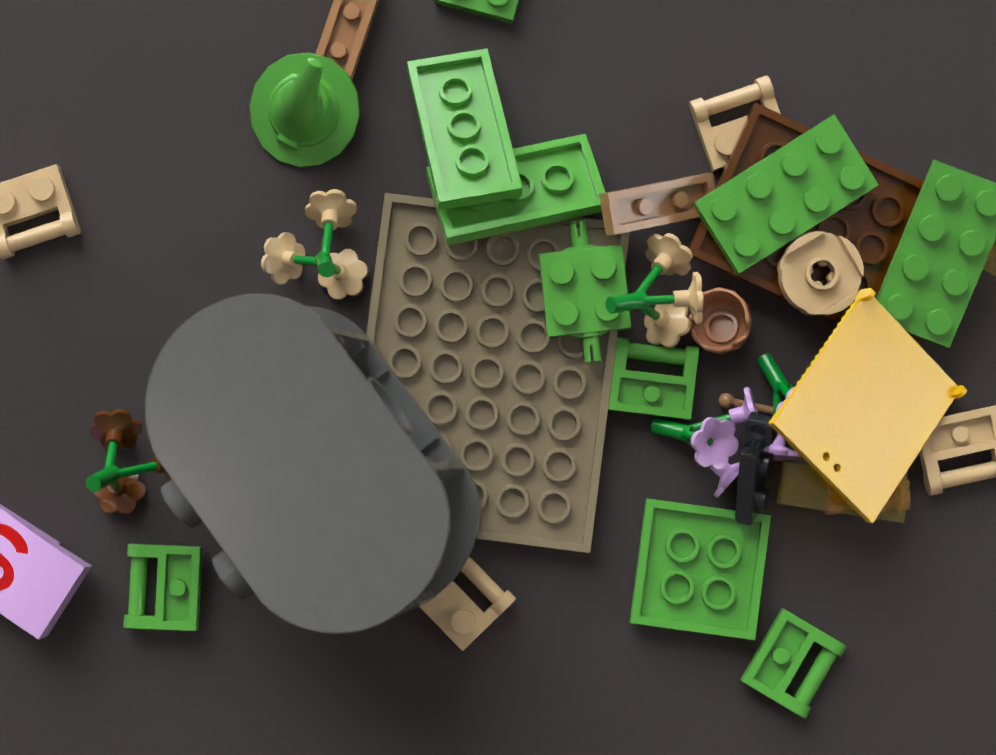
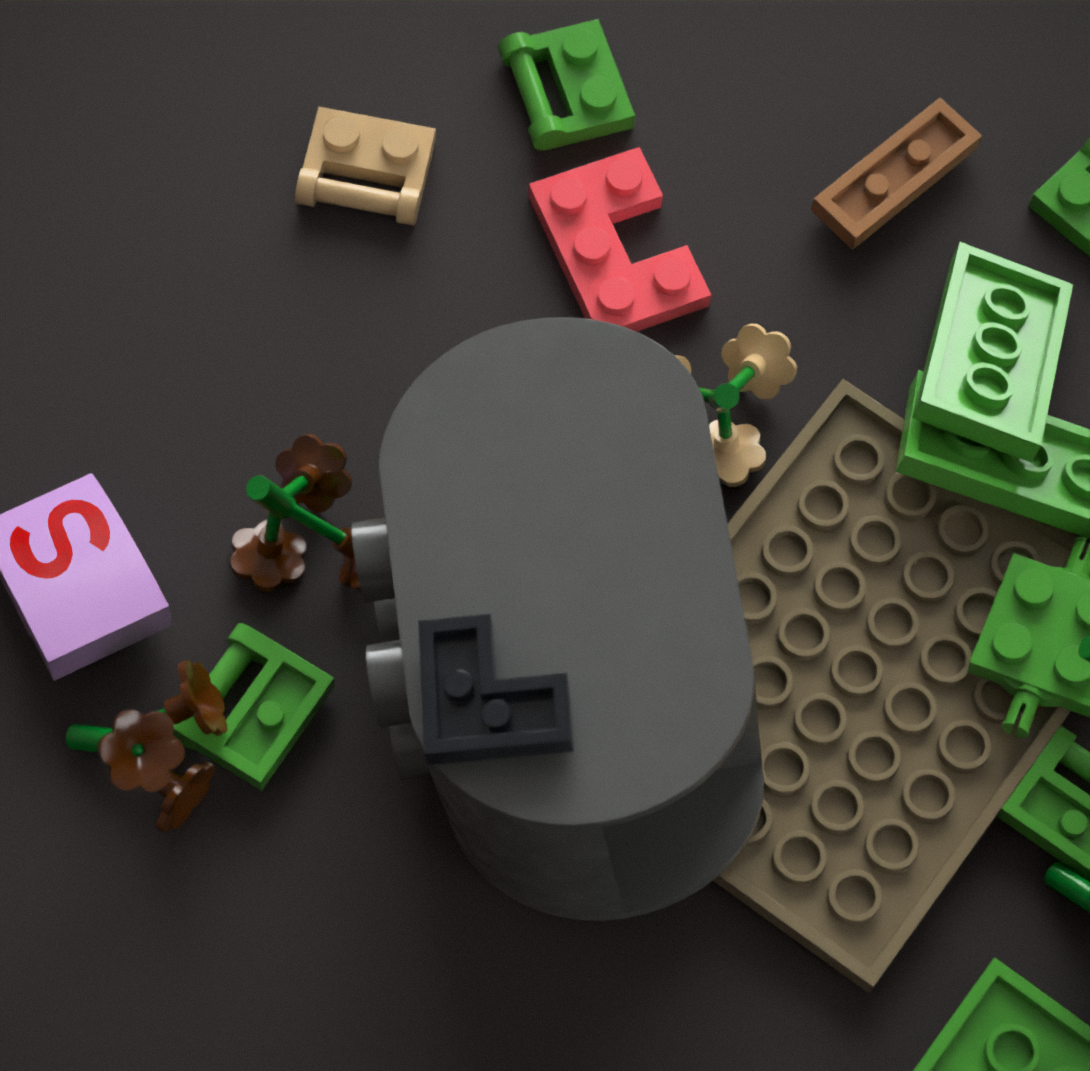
camera: 20 degrees right, 20 degrees down
(123, 669) = (144, 749): none -> reddish brown plant
(126, 75) = (583, 76): none -> bright green plate
(172, 170) = (578, 221): none -> coral plate
(293, 588) = (473, 712): none -> black plate
(304, 109) = (794, 228): bright green piece -> none
(459, 615) = (636, 972): tan plate -> none

